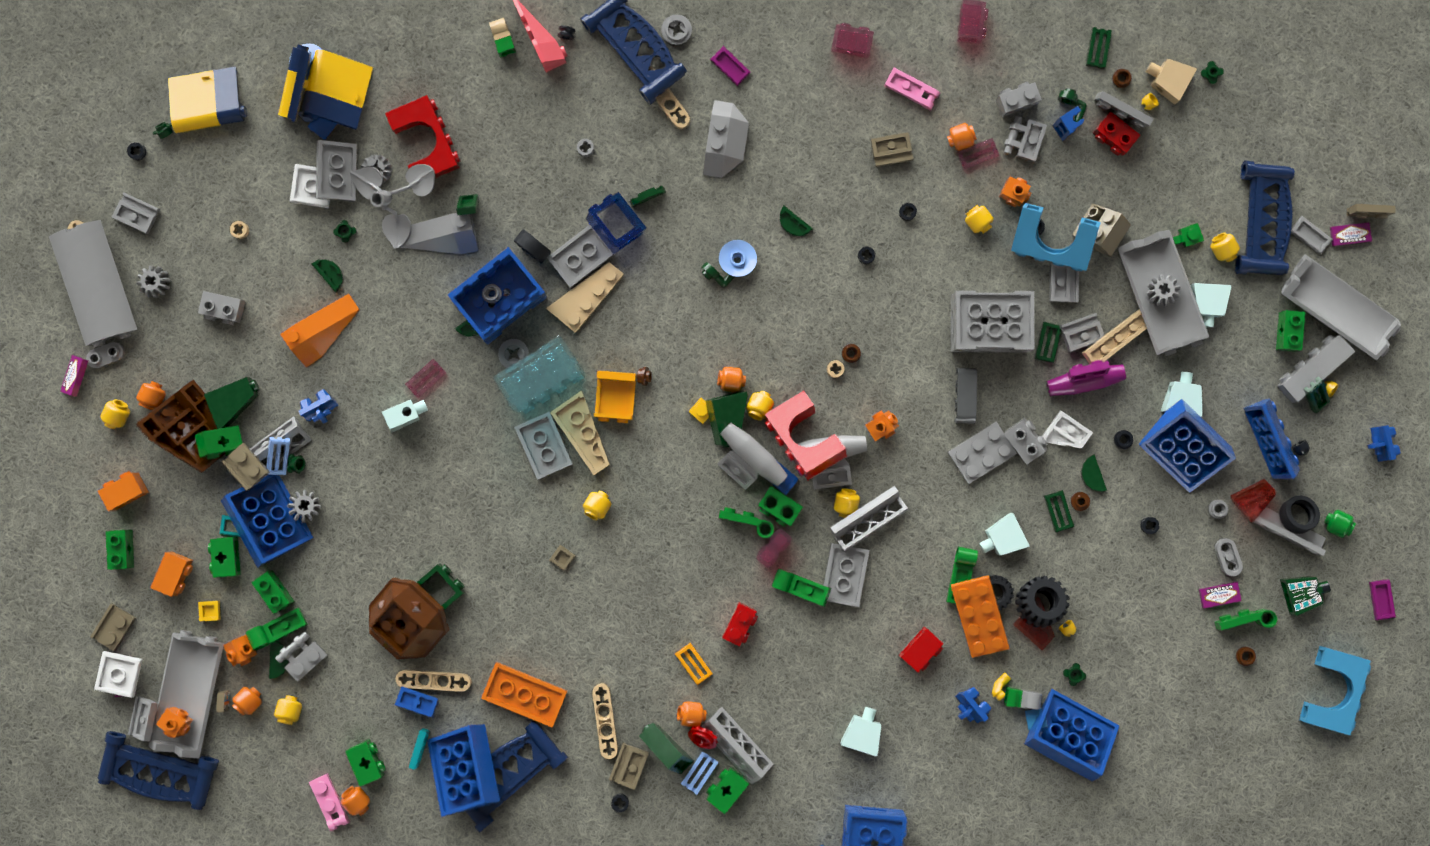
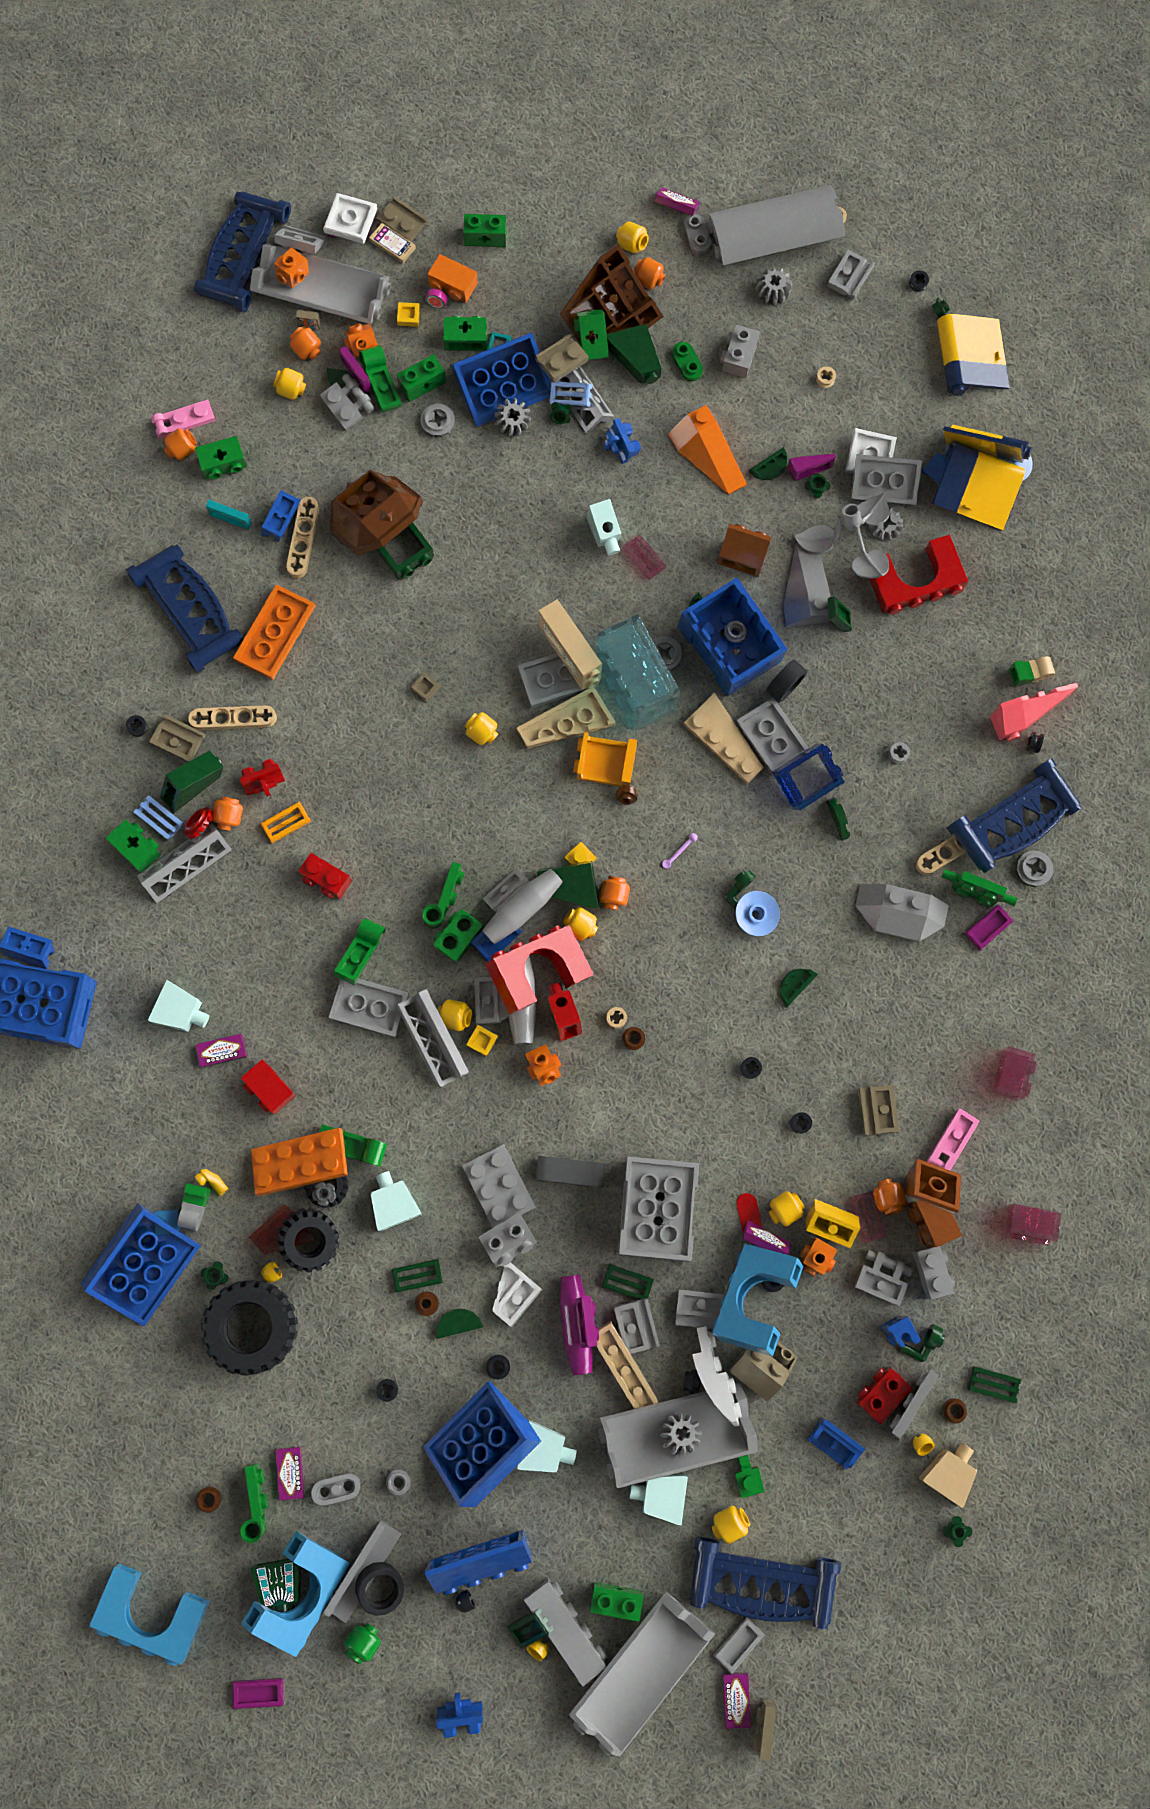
camera: 90 degrees right, 10 degrees down
(123, 491) = (547, 238): orange brick -> none
(137, 633) = (392, 243): none -> tile
(191, 586) = (436, 298): none -> tile
(233, 354) = (687, 360): none -> green plate
(270, 652) = (354, 369): none -> magenta tile
(302, 569) = (443, 412): none -> light grey gear
(329, 244) = (809, 465): none -> magenta slope
(415, 291) = (744, 549): none -> dark orange slope
(463, 770) = (198, 557): blue slope -> none
(520, 434) = (570, 645): none -> tan piece
(660, 687) = (263, 779): none -> red hips
(675, 317) = (667, 863): none -> lavender hinge
(700, 82) = (978, 888): none -> green plate
(777, 543) = (405, 920): clear pink brick -> none
(844, 409) = (566, 1015): none -> red torso
(865, 478) = (482, 1040): none -> yellow plate
(893, 693) = (221, 1050): none -> tile
(952, 101) = (934, 1185): none -> dark orange slope
(969, 708) = (183, 1150): blue hips -> none
(982, 249) = (748, 1210): none -> red piece
(983, 99) = (934, 1224): none -> dark orange slope
(988, 181) = (832, 1223): none -> yellow brick
(1005, 234) = (765, 1238): none -> magenta tile
(1005, 587) = (330, 1194): none -> dark grey plate
(1120, 285) = (691, 1381): none -> black plate
(1126, 264) = (717, 1385): none -> white slope
(1140, 640) = (216, 1327): none -> black tyre
(1156, 169) = (835, 1443): none -> blue hinge
(1254, 499) = (405, 1529): clear red wing -> none
(1337, 579) = (292, 1628): none -> arch

